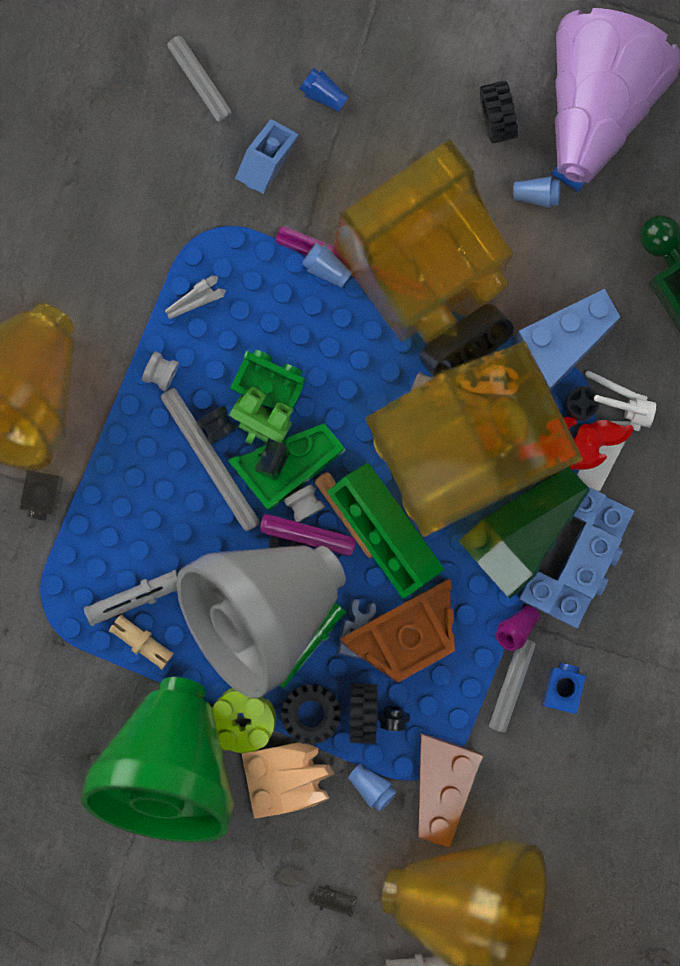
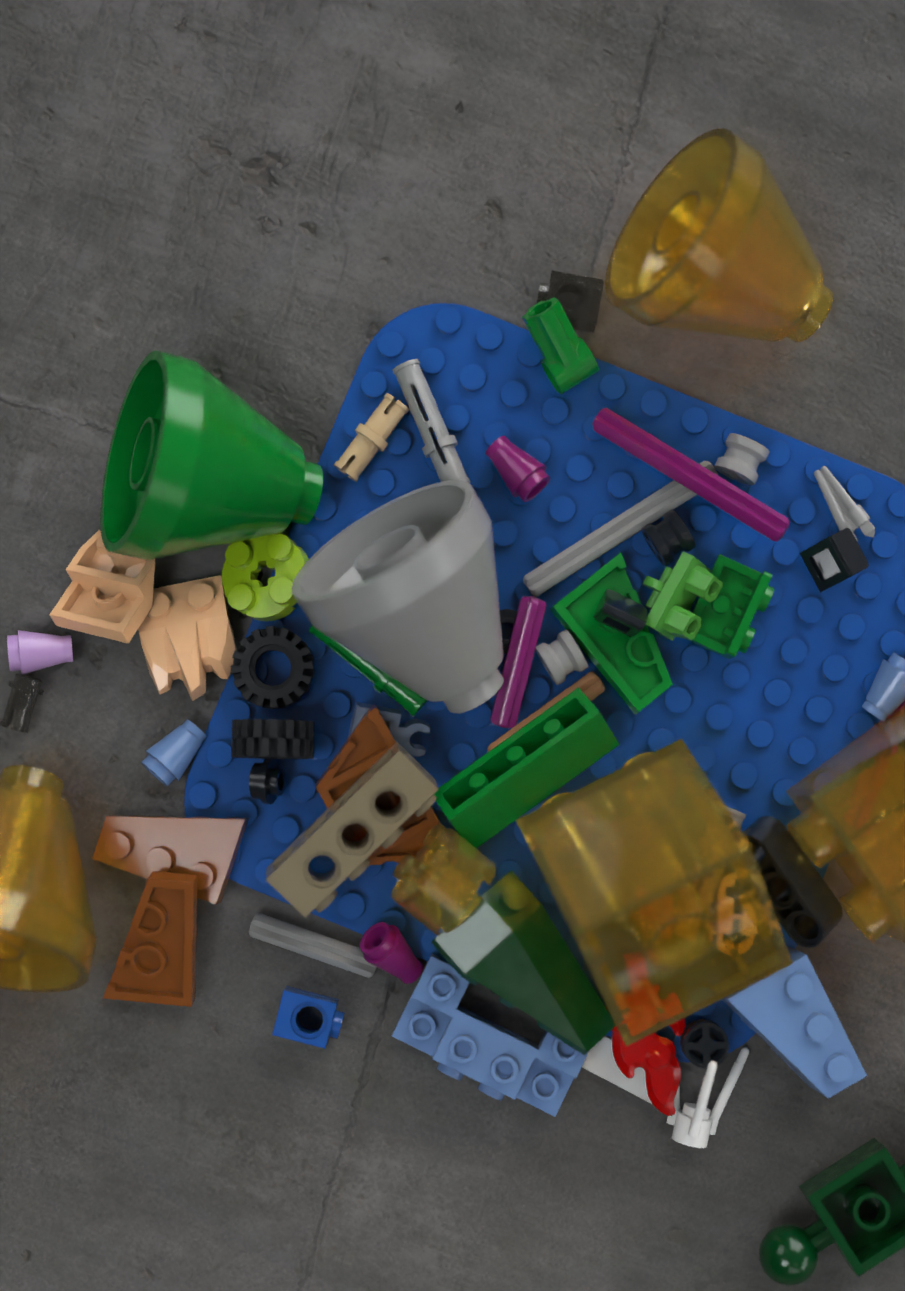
camera: 90 degrees right, 0 degrees up
(81, 500) = (565, 355): none -> green piece
(167, 533) = (518, 469): none -> magenta cone
(171, 409) = (691, 474): none -> magenta axle
(234, 305) = (834, 559): none -> black slope
(255, 838) = (106, 594): none -> light nougat plate
(297, 889) = (37, 651): none -> lavender cone
(388, 627) = (392, 772): none -> dark tan brick
(465, 590) = (442, 880): none -> clear yellow brick
(512, 795) = (161, 945): none -> dark orange wing

